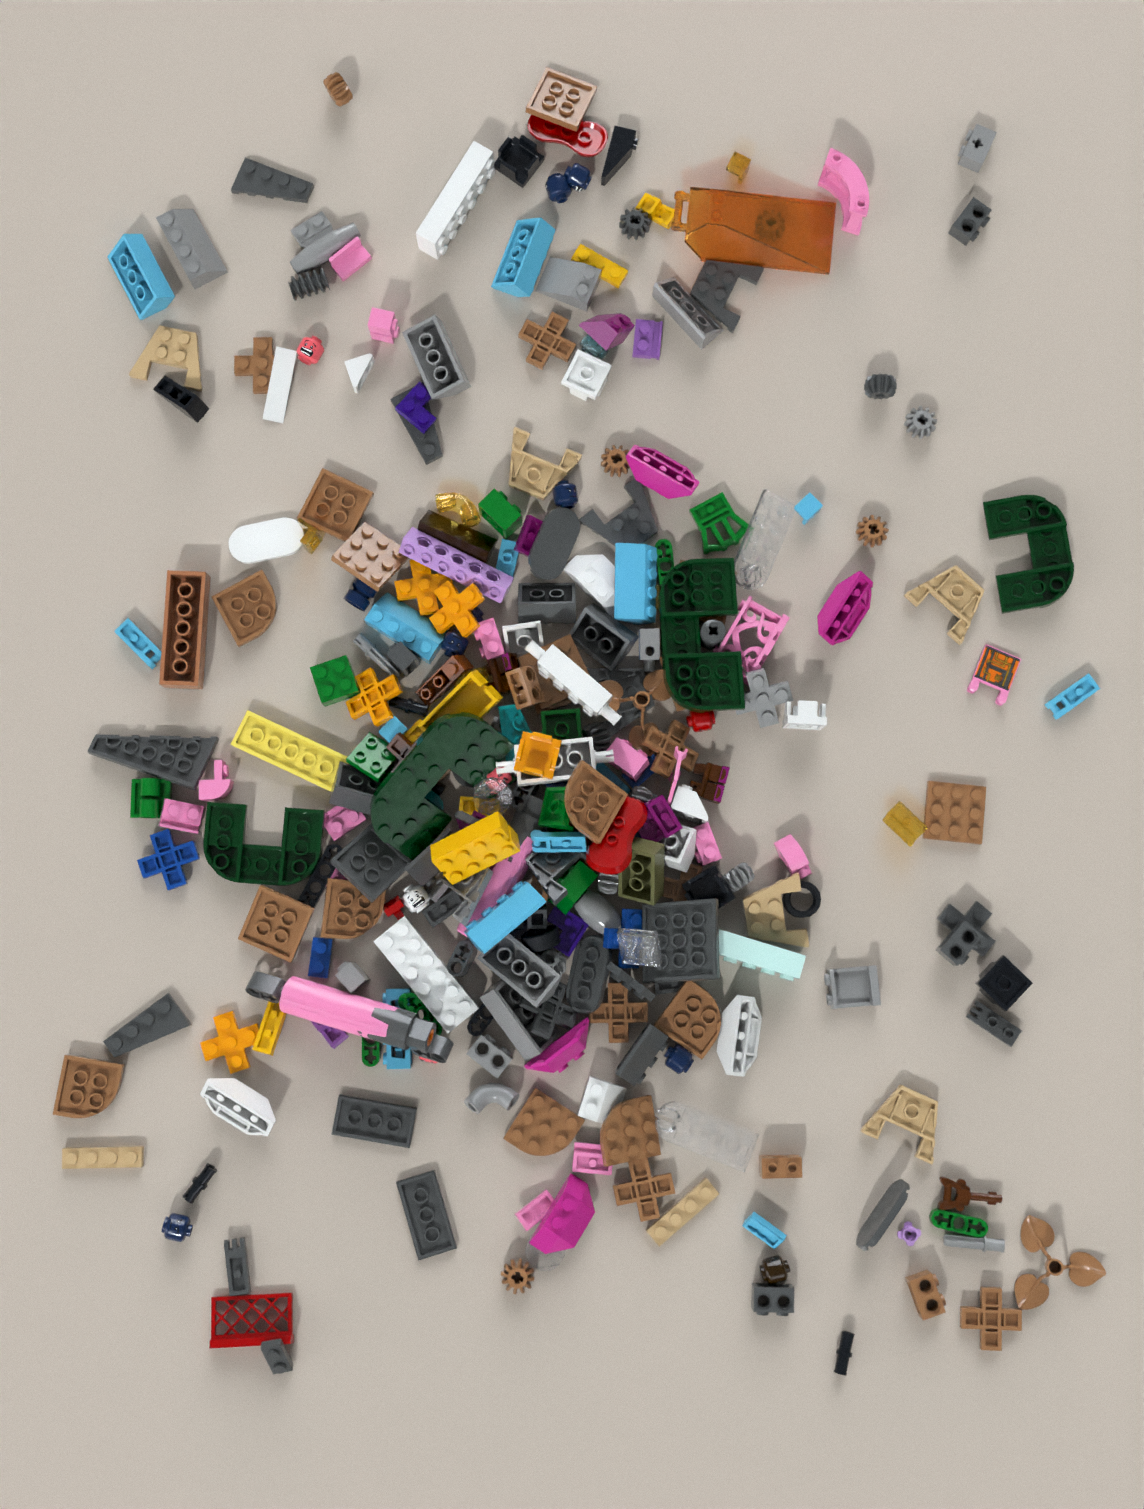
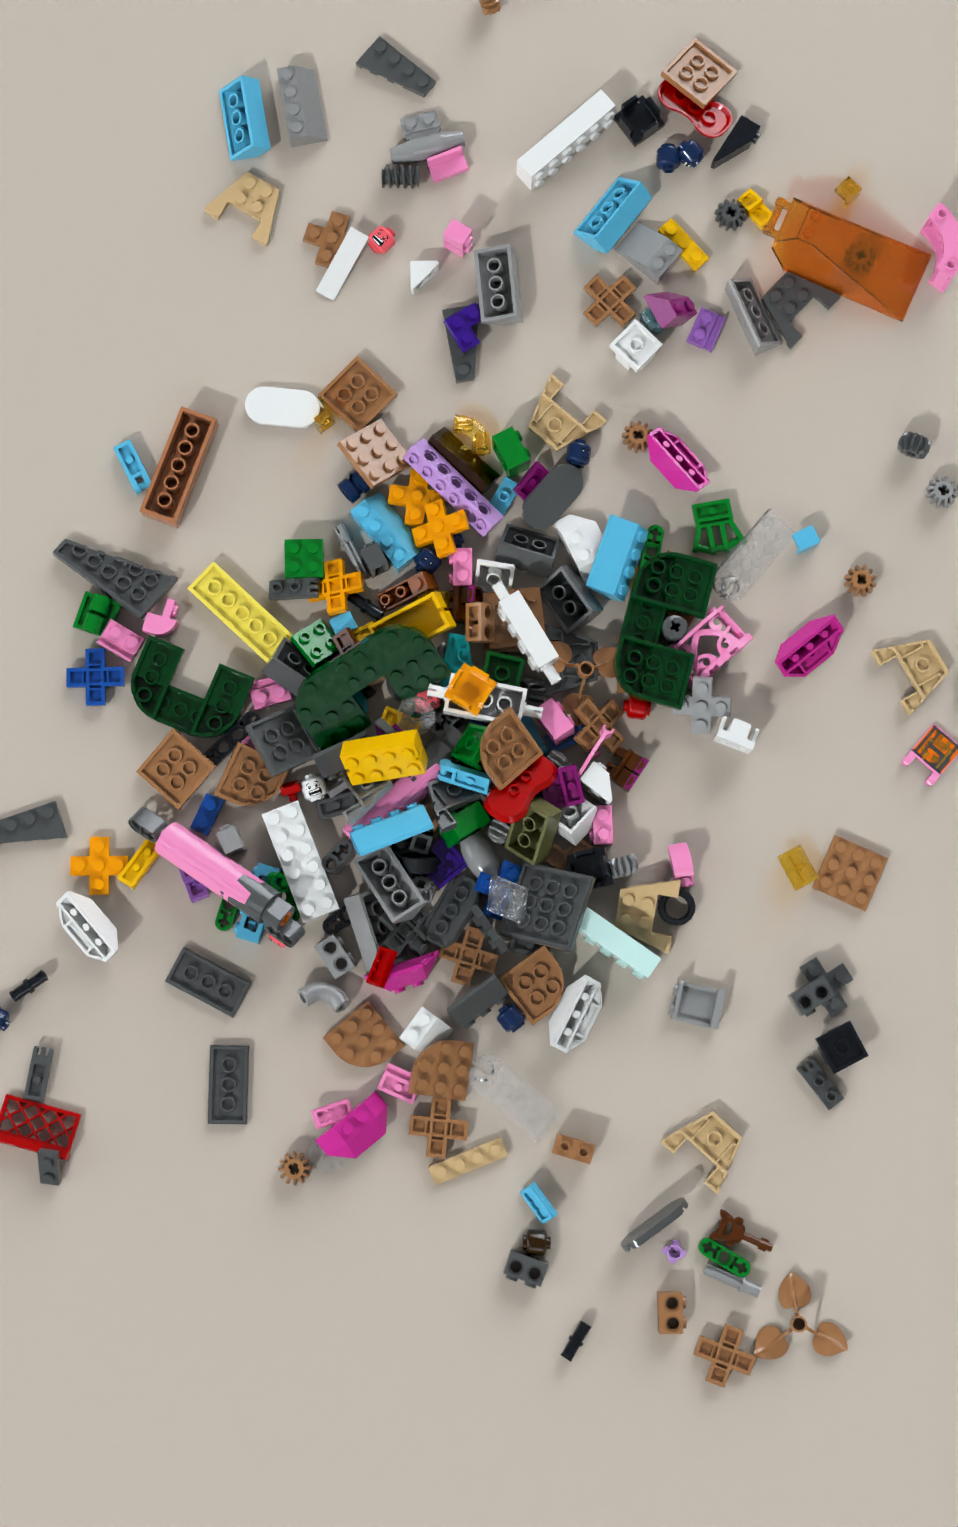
camera: 20 degrees right, 0 degrees up
(181, 398) = (245, 247): black slope -> none
(247, 607) = (244, 465): medium nougat plate -> none
(334, 712) = (293, 589): none -> dark grey hinge
(539, 1053) = (381, 967): none -> red plate
(629, 526) = (631, 503): dark grey wing -> none
(651, 639) = (611, 614): light grey torso -> none

